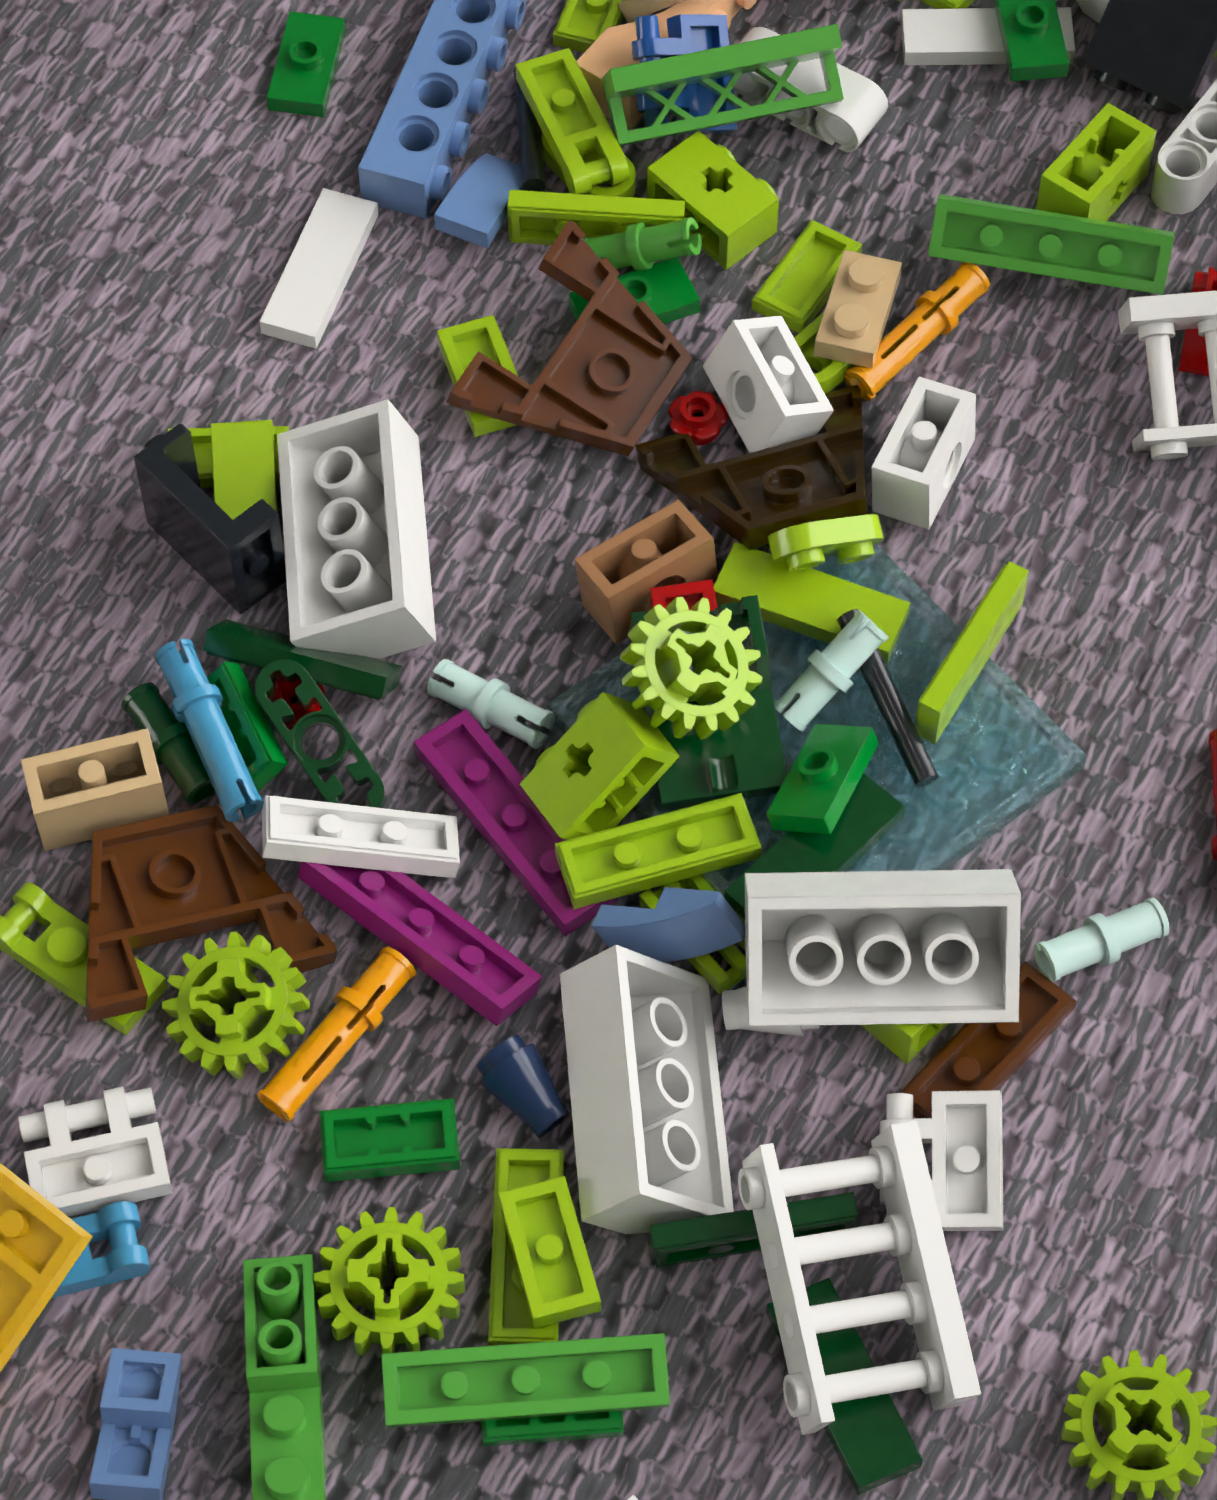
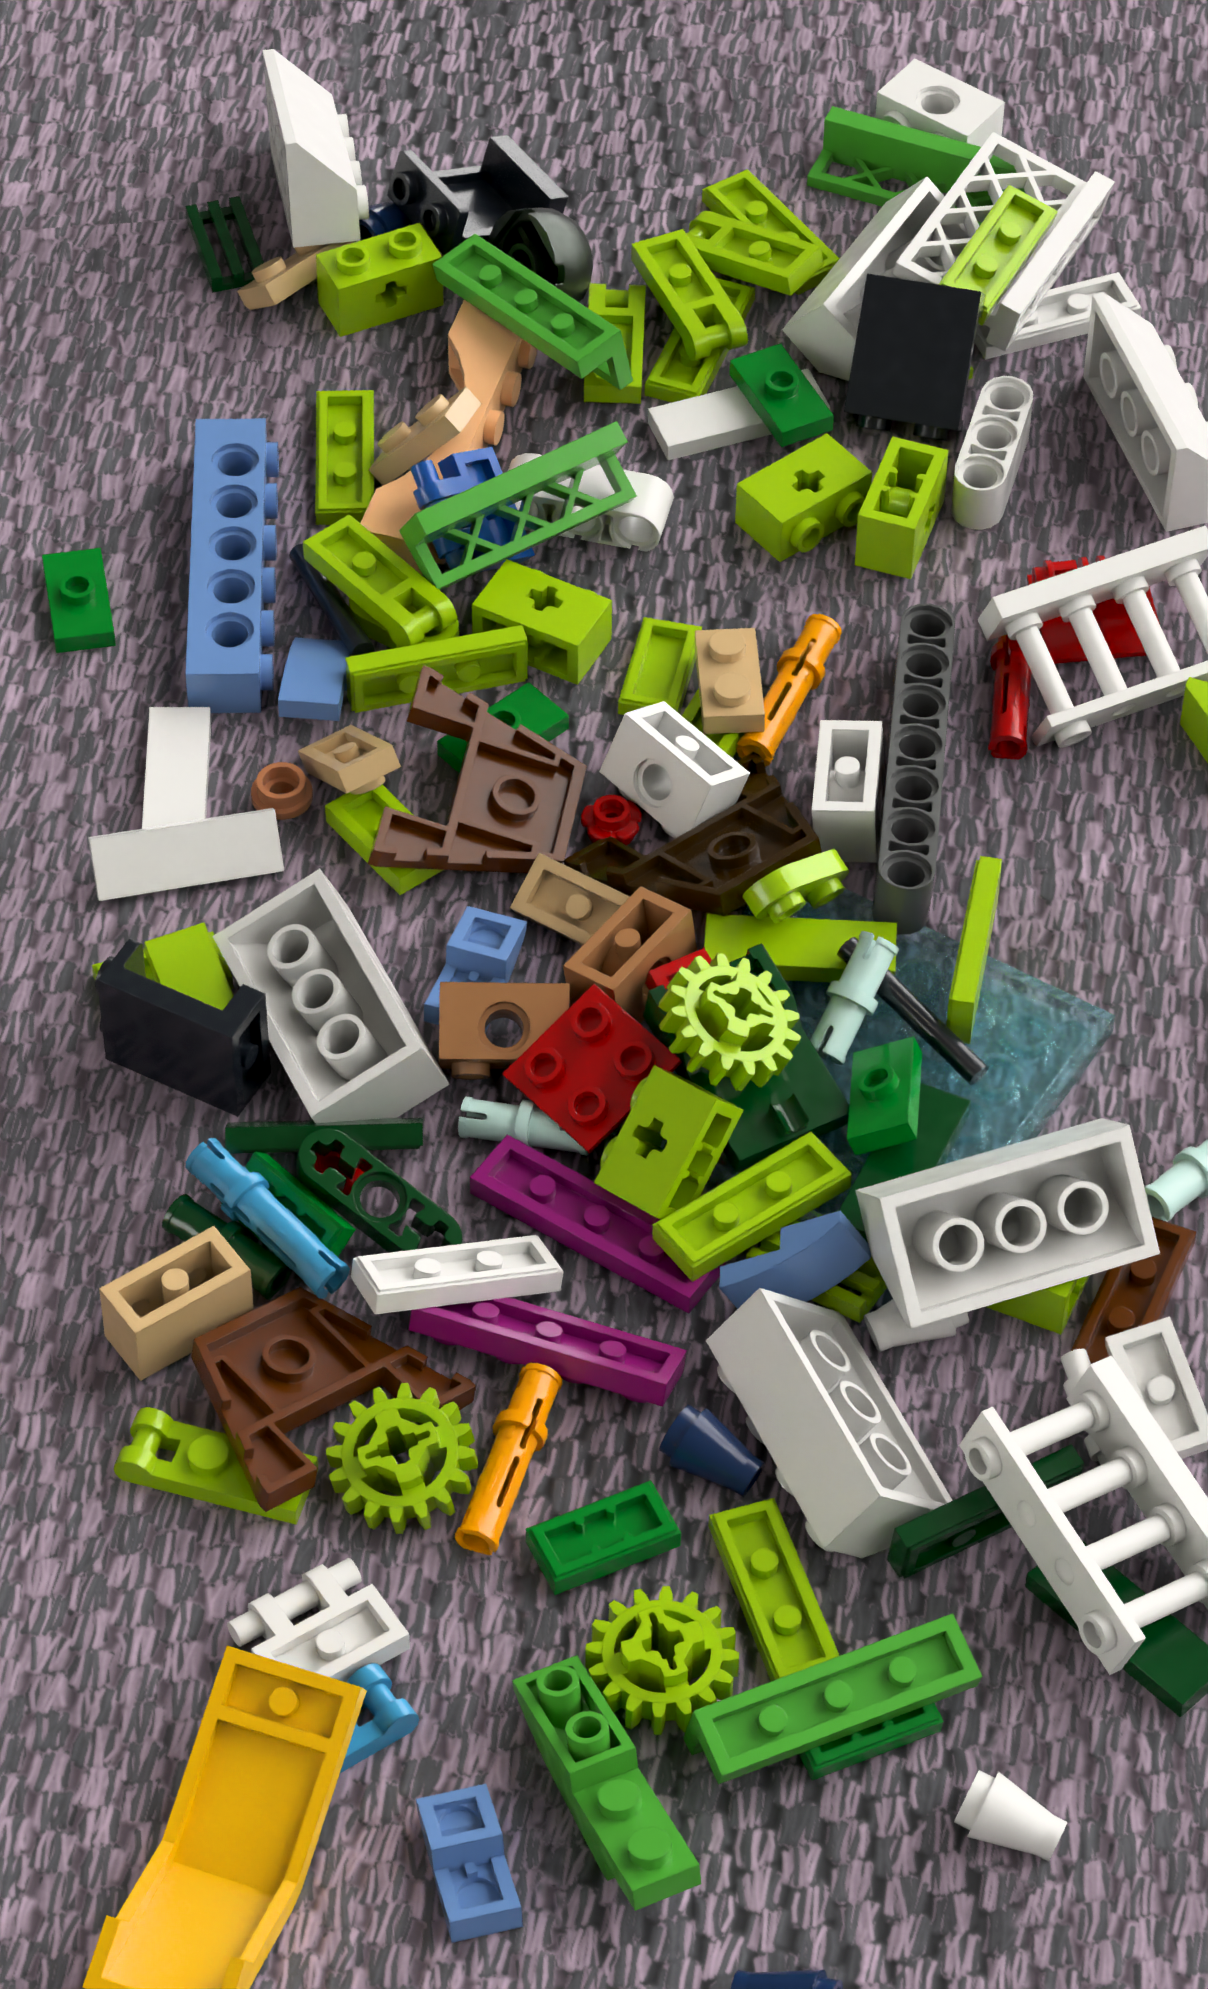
camera: 20 degrees left, 10 degrees down
(294, 343) = (186, 854): none -> white tile
(408, 291) = (278, 779): none -> nougat plate
(471, 581) = (471, 1006): none -> medium nougat brick
(475, 293) = (350, 760): none -> tan plate
(514, 532) = (478, 951): none -> medium blue slope
(549, 1252) = (807, 1582): lime plate -> none
(558, 667) = (589, 1067): none -> red hinge
(617, 486) = (565, 900): none -> tan plate
(644, 245) = (504, 673): bright green pin -> none
(995, 447) = (914, 768): none -> dark grey beam
(1007, 137) = (802, 497): none -> lime brick
(1051, 244) = (887, 576): bright green fence -> none
(1121, 402) = (1009, 700): none -> red pin

